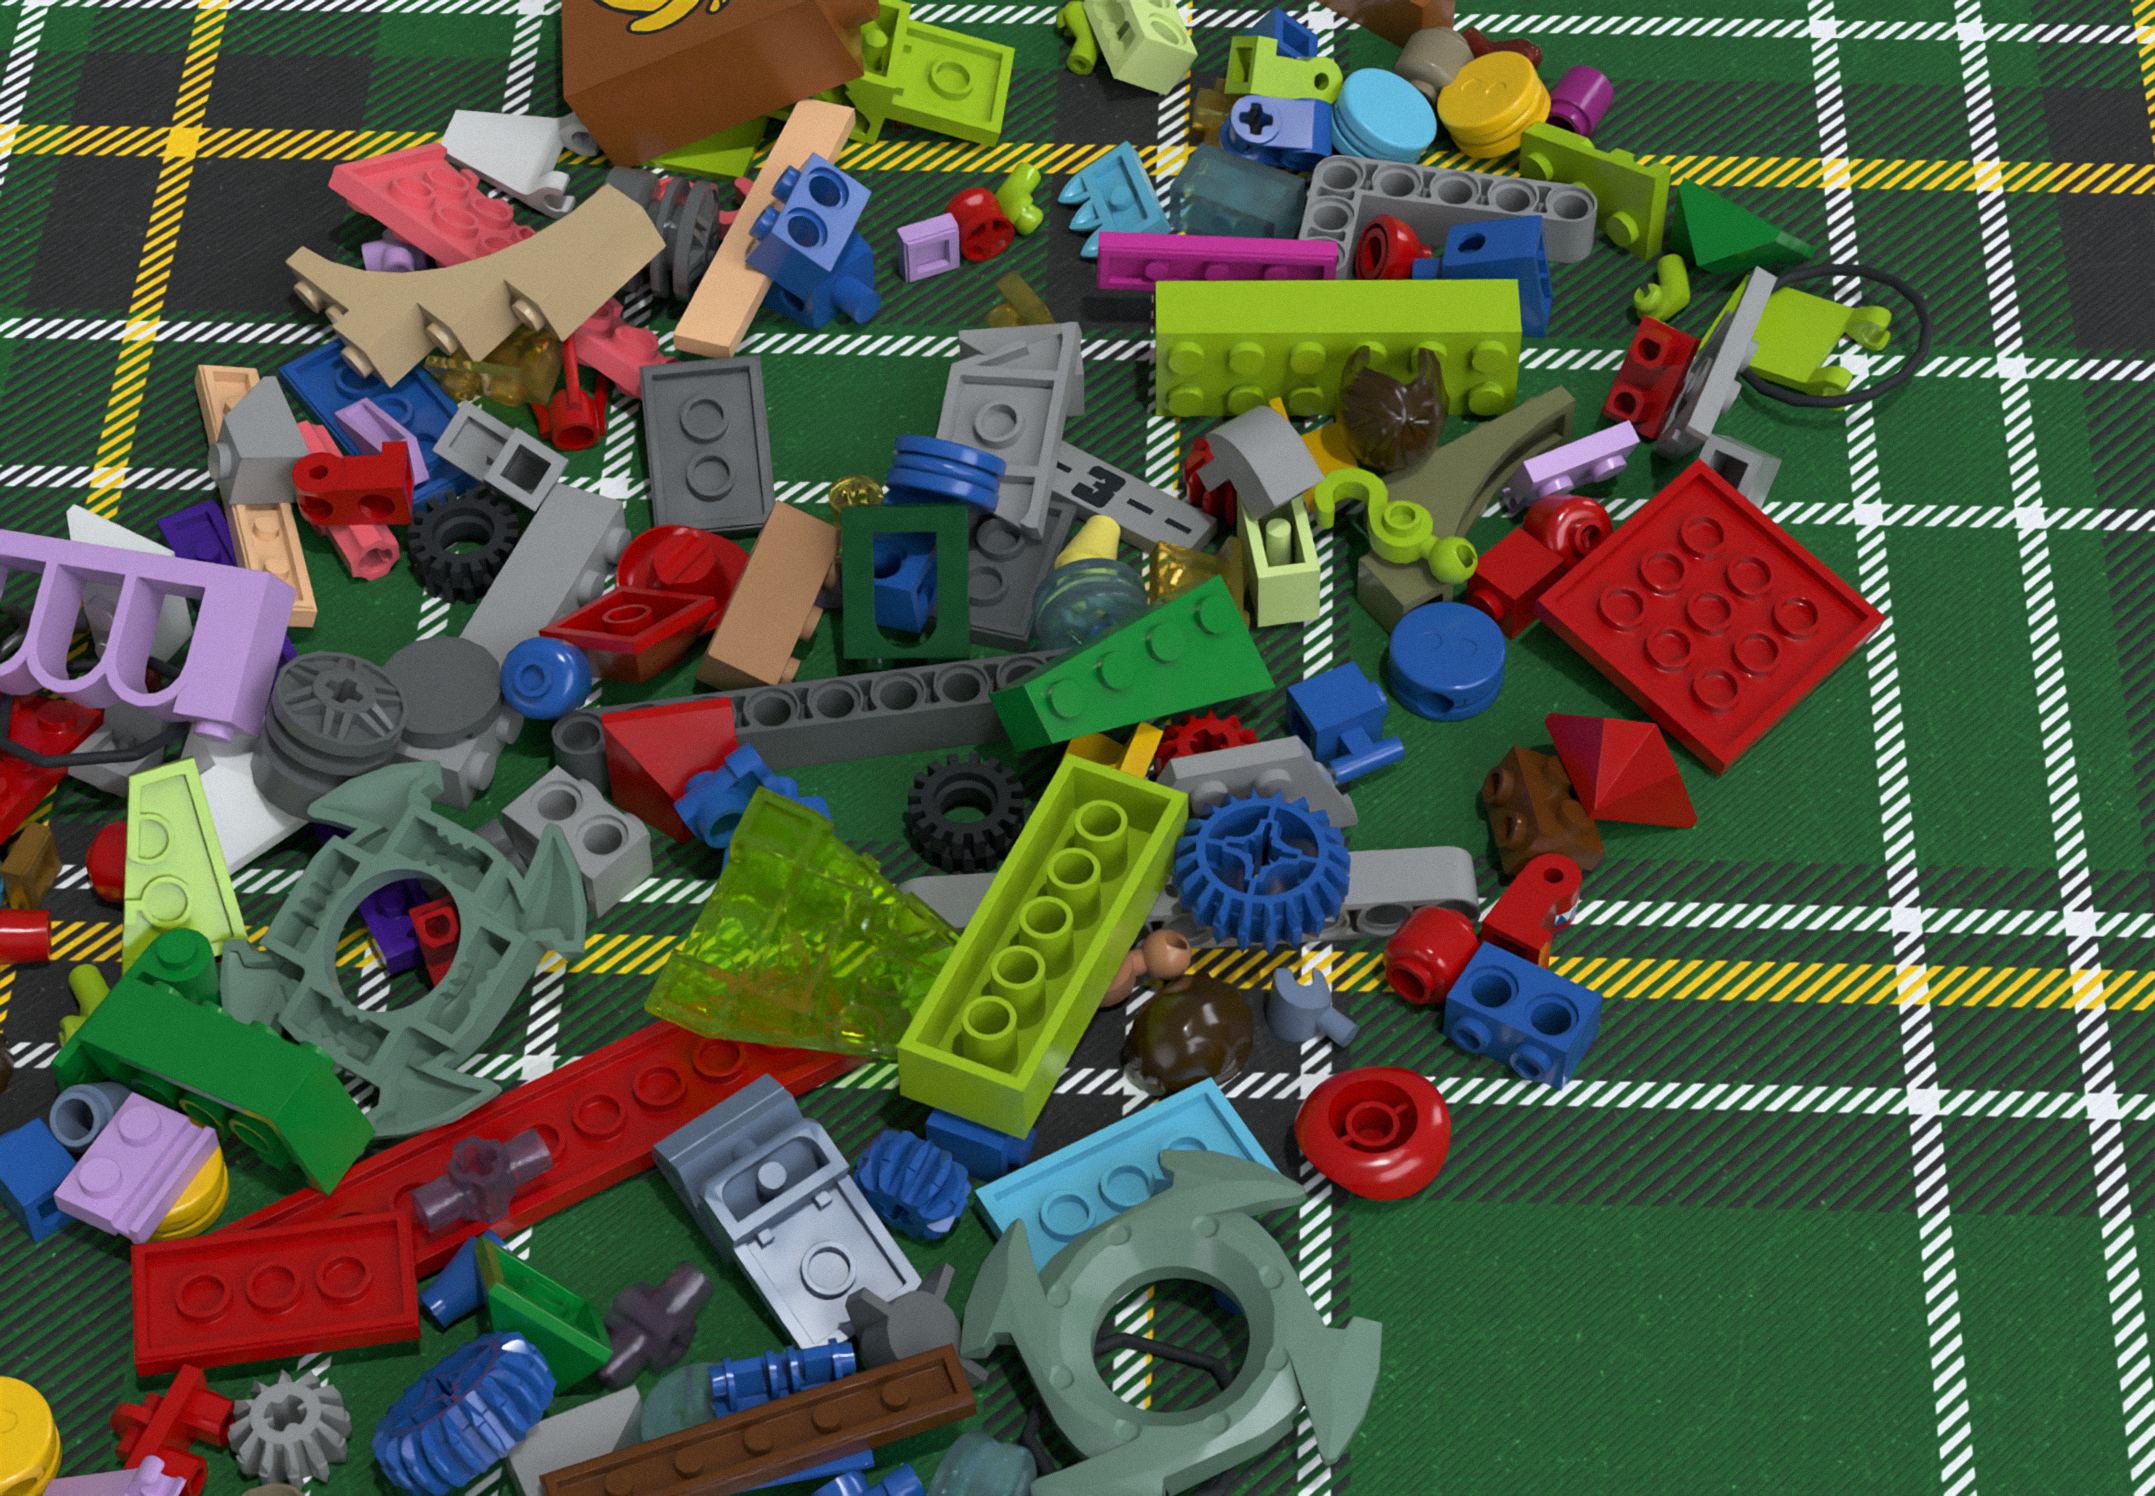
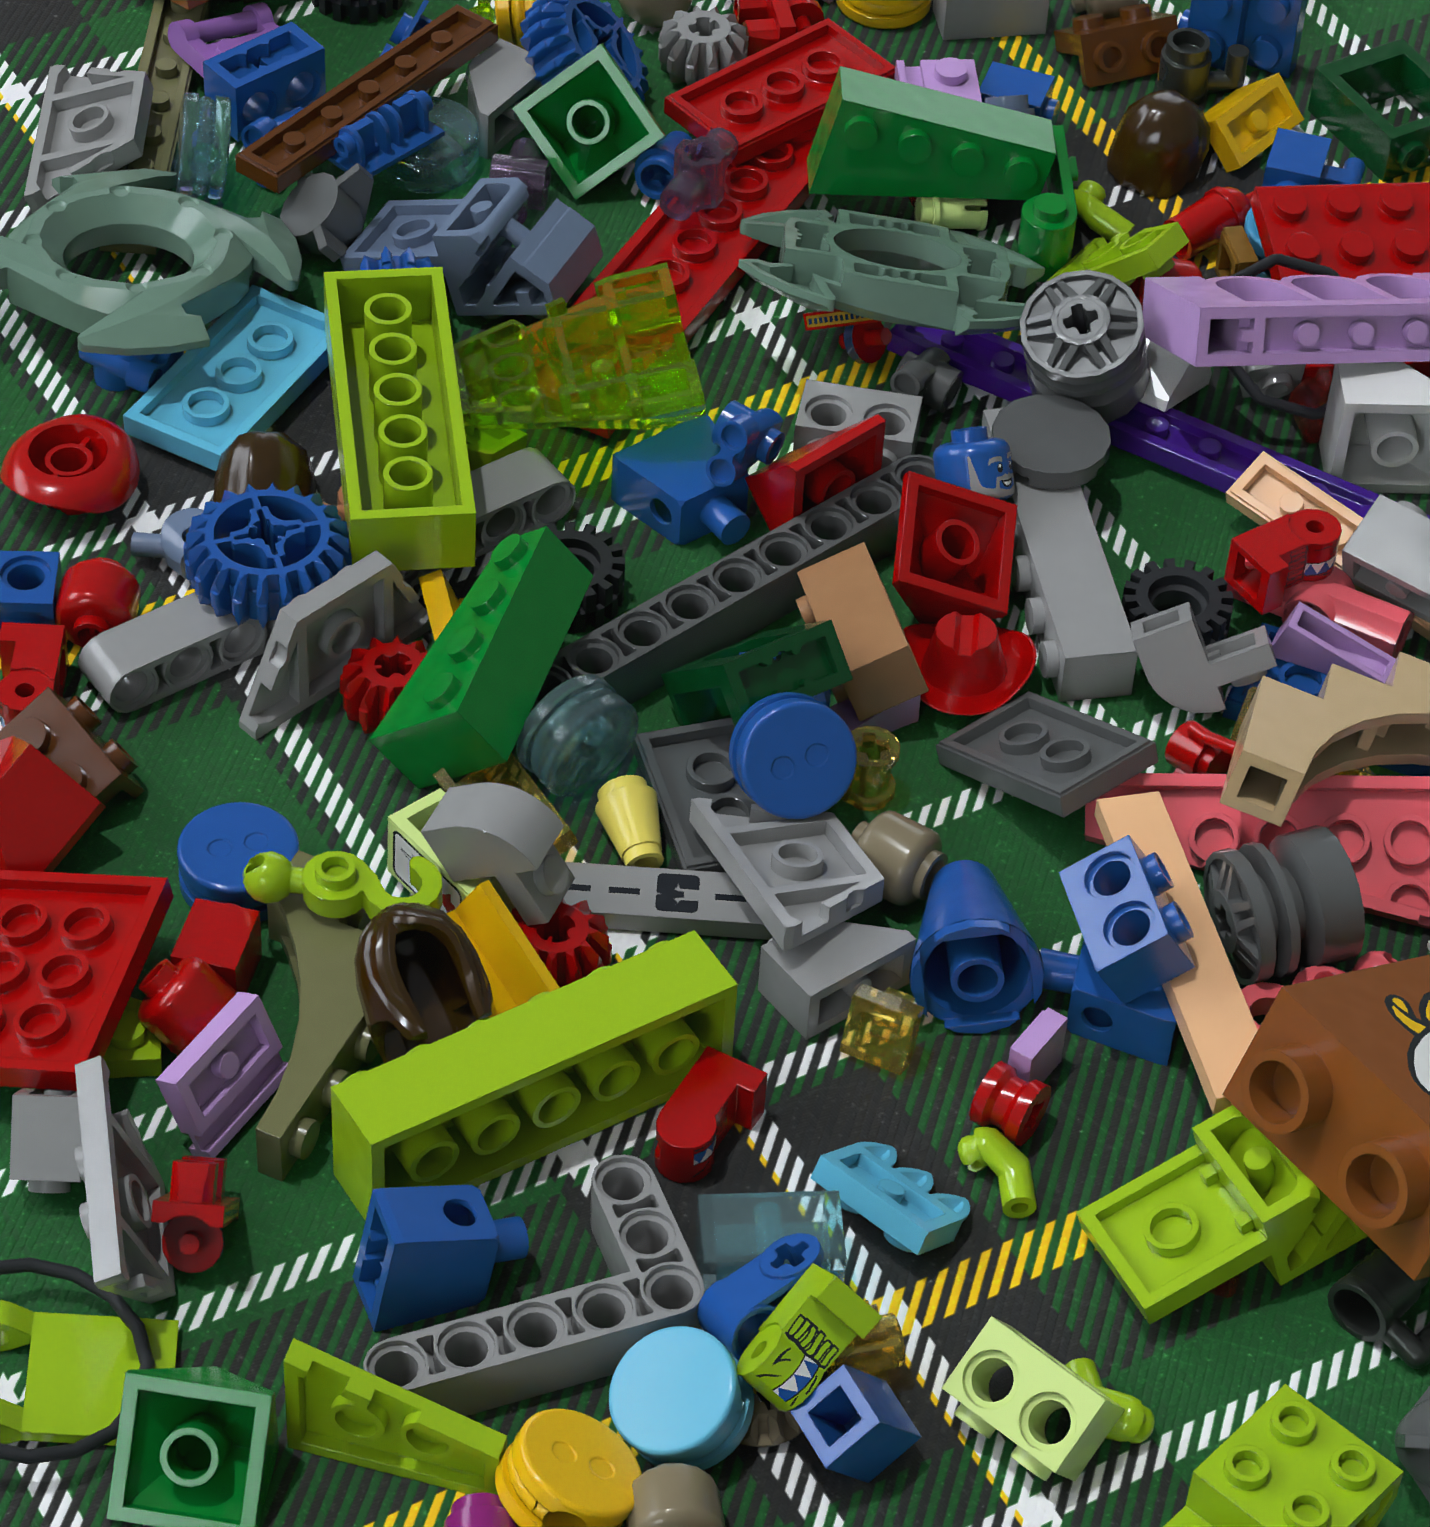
camera: 145 degrees right, 5 degrees down
(900, 409) = (903, 853): none -> dark tan head
(910, 325) = (973, 953): none -> blue cone
(1141, 259) = (708, 1084): dark pink tile -> none
(1342, 722) = (301, 764): blue brick -> none
(1388, 250) = (559, 1253): red brick -> none
(1670, 295) = (247, 1348): lime arm -> none

